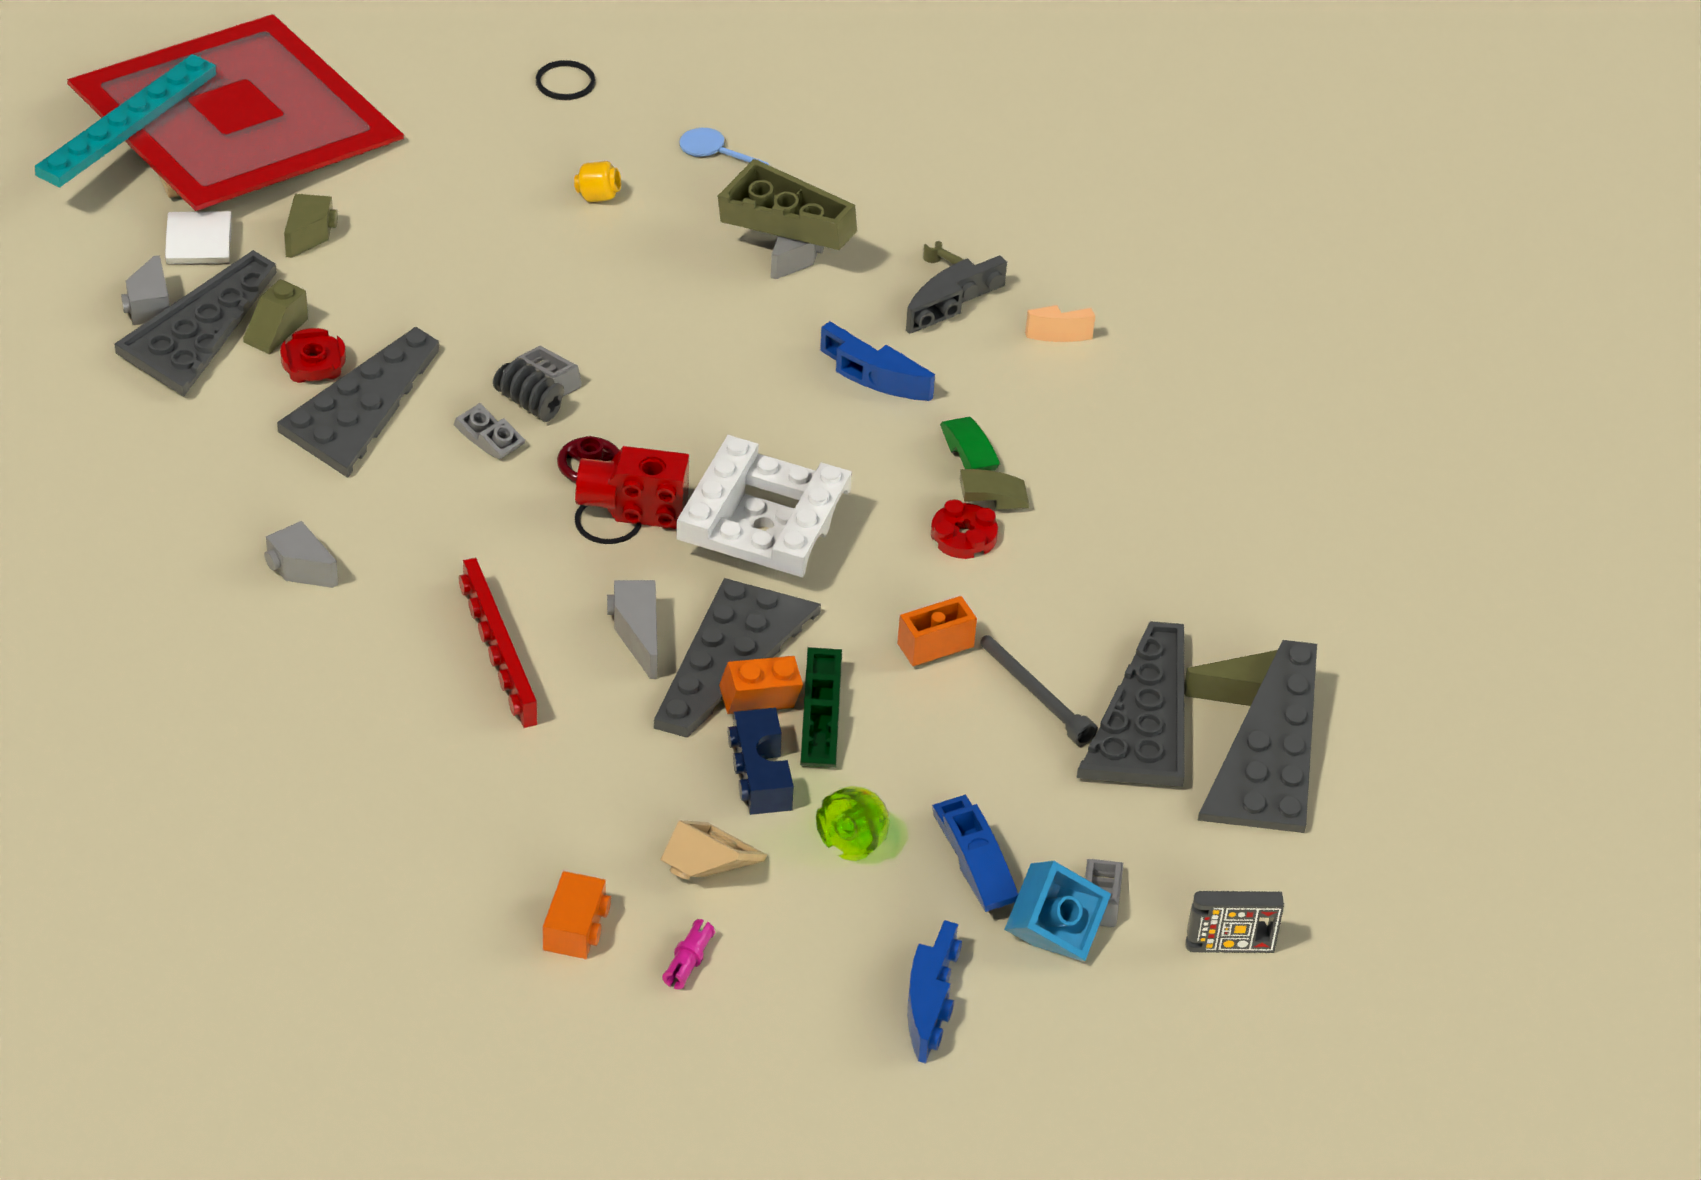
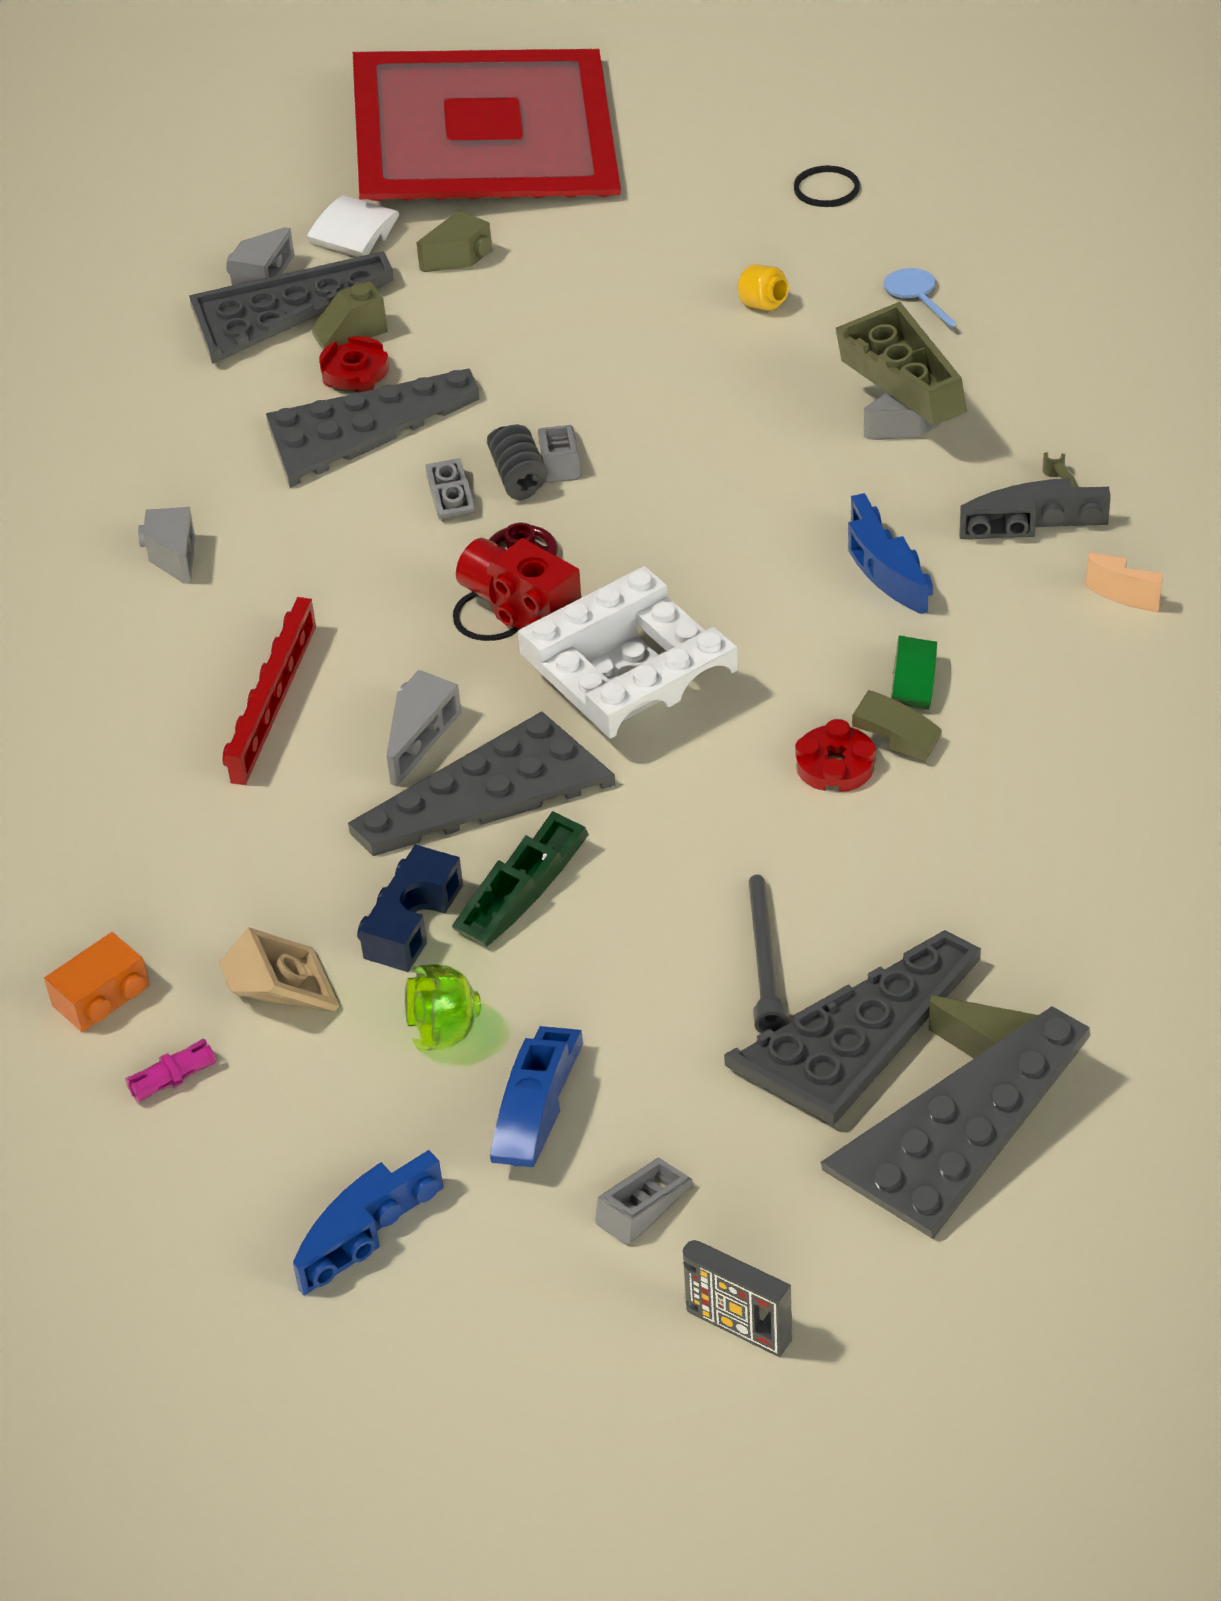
camera: 40 degrees right, 0 degrees up
(125, 120) = (365, 100): teal plate -> none
(761, 684) = (469, 828): orange brick -> none
(937, 630) = (698, 846): orange brick -> none
(1058, 910) = (558, 1197): dark azure slope -> none

